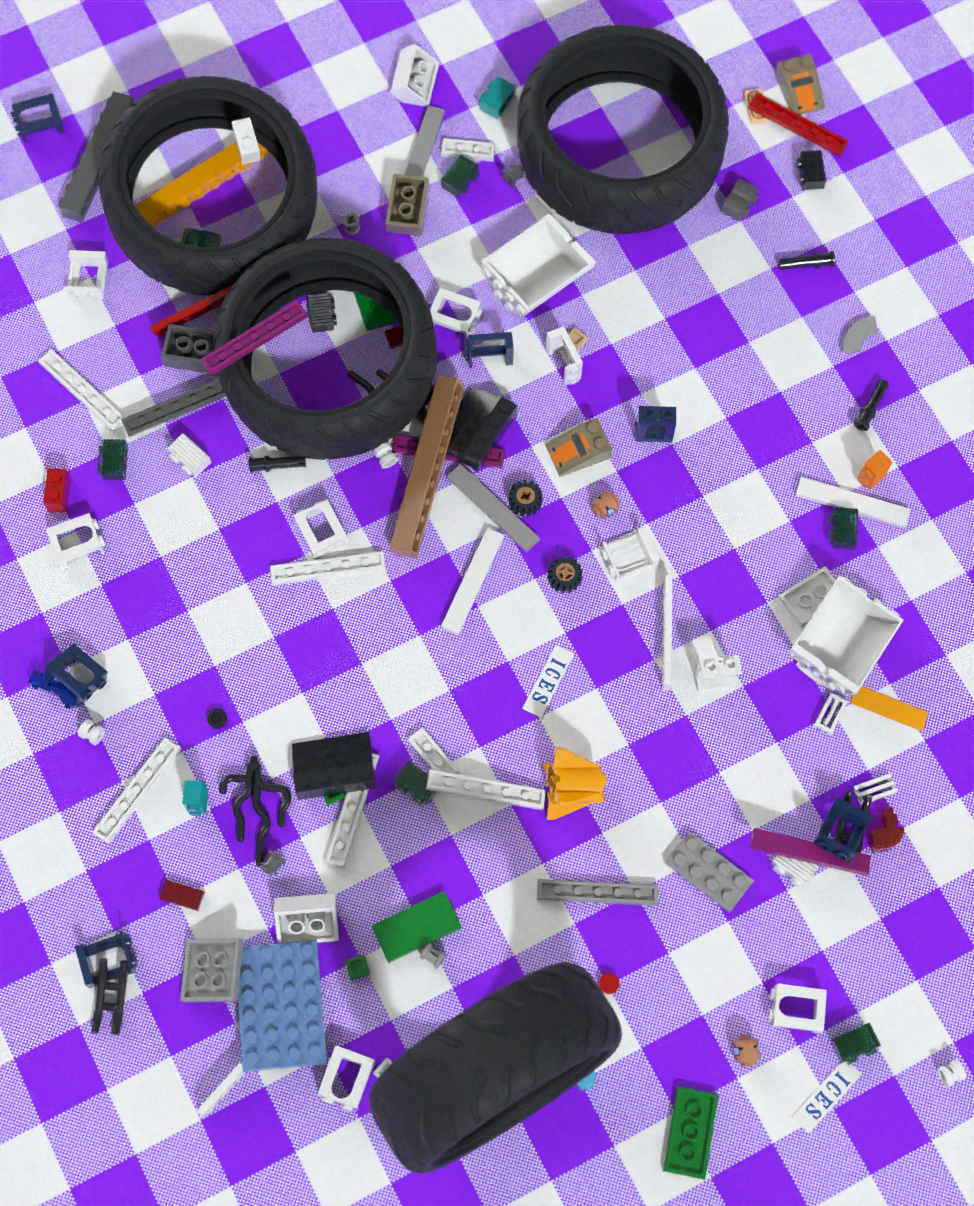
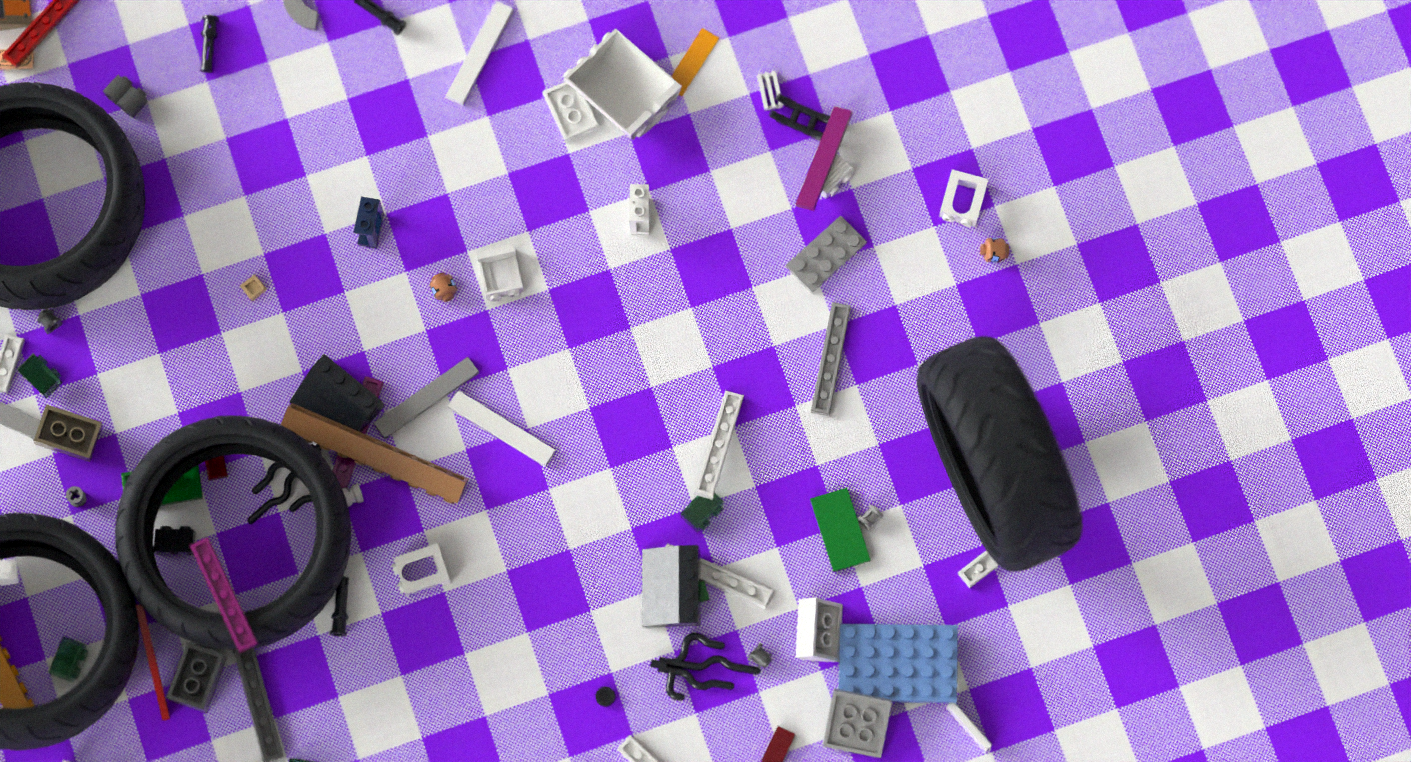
camera: 80 degrees left, 5 degrees up
(188, 456) = (317, 695): white brick -> none
(195, 797) = (687, 721): teal brick -> none
(327, 568) = (463, 570): white tile -> none
(353, 1100) = (980, 629): white panel -> none
(357, 967) = (870, 589): green tile -> none
(431, 752) = (673, 492): white tile -> none
(464, 327) = (199, 382): white panel -> none
(506, 349) = (253, 354): dark blue panel -> none
(524, 504) = (422, 371): black wheel -> none
(535, 266) = (171, 310): white cylinder -> none
(548, 681) = (615, 372): white sticker -> none
(560, 341) = (258, 303): white panel -> none
(566, 568) = (507, 332): black wheel -> none
(572, 783) = (727, 362): light orange brick -> none
(579, 448) = (377, 303): dark tan slope -> none
(609, 983) = (916, 360): red tile -> none
(667, 633) = (586, 250): white tile -> none
(691, 1133) = (1059, 312): green tile -> none
(811, 170) = (104, 18): black brick -> none
(824, 727) = (703, 125): white tile -> none
(826, 1096) = (1041, 189): white sticker -> none
(844, 528) = (507, 65): brick -> none
(851, 815) = (793, 116): dark blue panel -> none
(855, 1043) = (1001, 155): clear green brick -> none
(874, 470) = (453, 24): orange brick -> none
(888, 836) = (816, 85): clear red brick -> none
(951, 1073) = (1037, 78): white wheel -> none

